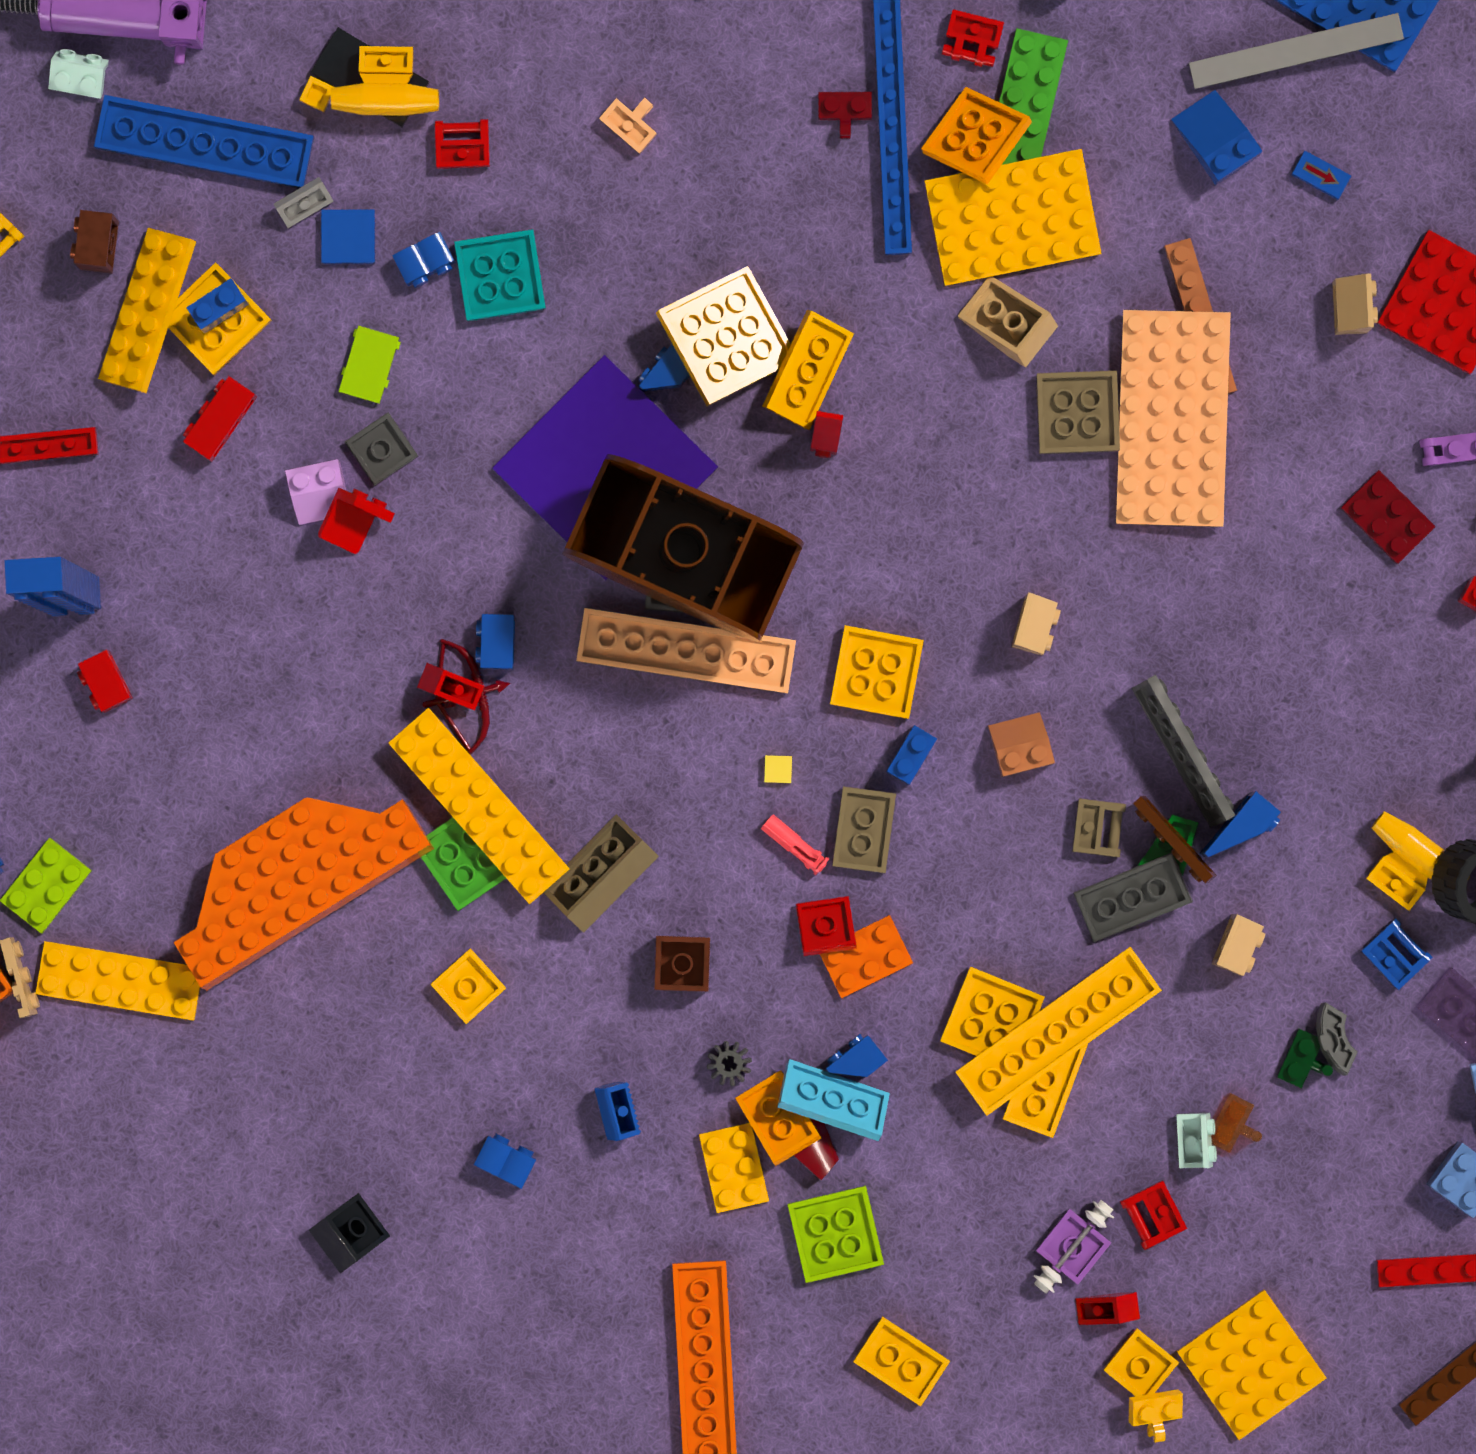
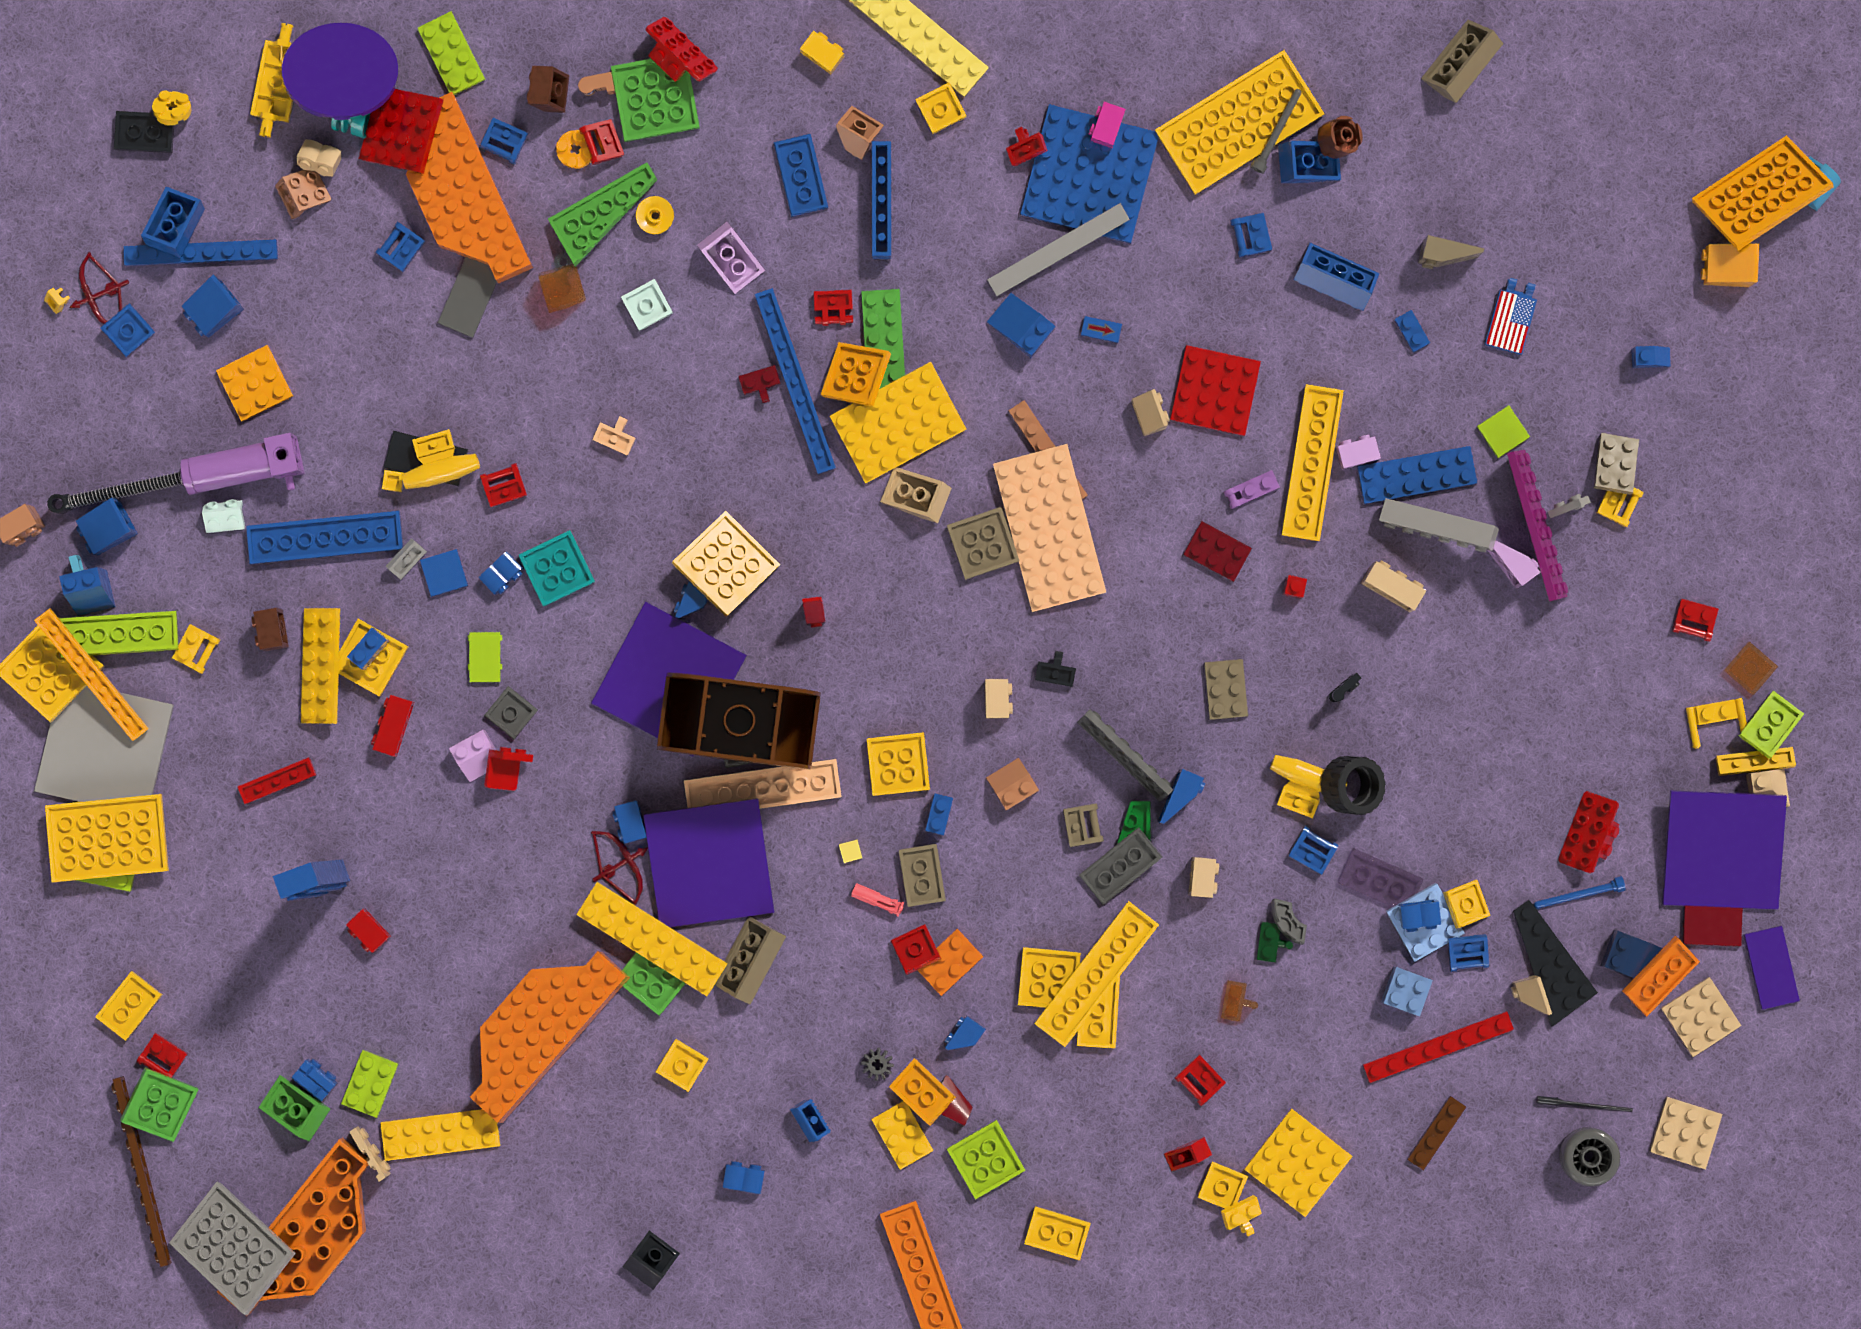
camera: 20 degrees left, 0 degrees up
(450, 686) = (607, 862): red slope -> none
(585, 728) = (709, 863): none -> dark purple tile
(682, 963) = (824, 1005): copper brick -> none
(808, 369) = (788, 570): yellow plate -> none
(833, 1100) = (956, 1068): medium azure plate -> none
(1073, 1246) = (1151, 1118): medium lavender plate -> none
(1123, 613) = (1055, 672): none -> black plate
(1168, 833) = (1143, 823): reddish brown plate -> none
(1195, 1140) = (1213, 1020): light aqua bracket -> none
(1344, 704) = (1226, 689): none -> dark tan plate

